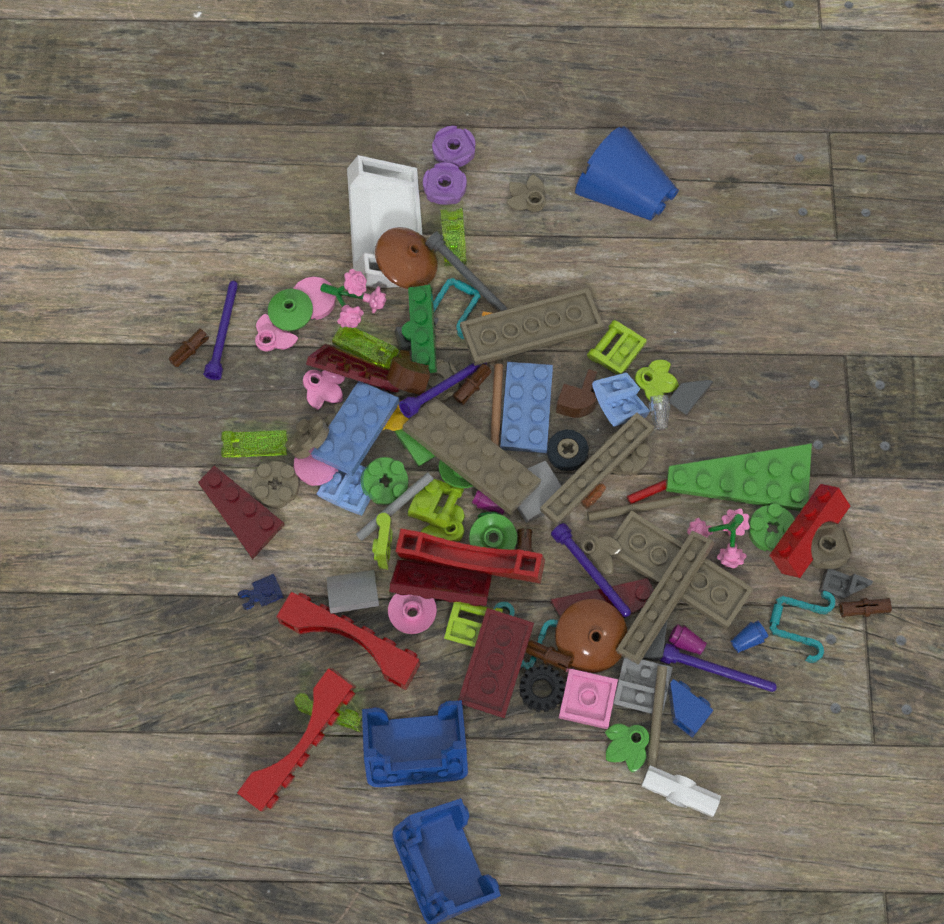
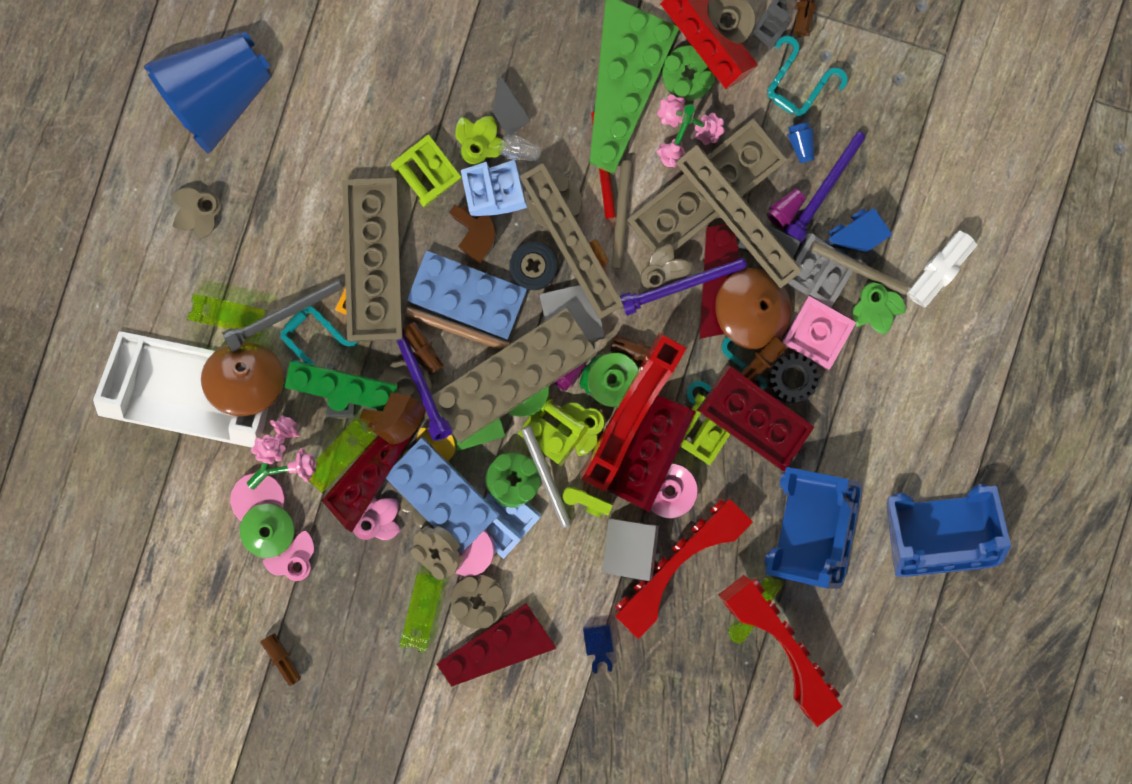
camera: 75 degrees left, 20 degrees up
(214, 369) = (315, 636): dark purple piece -> none
(444, 195) = (138, 311): medium lavender plate -> none
(452, 135) = (92, 269): medium lavender plate -> none

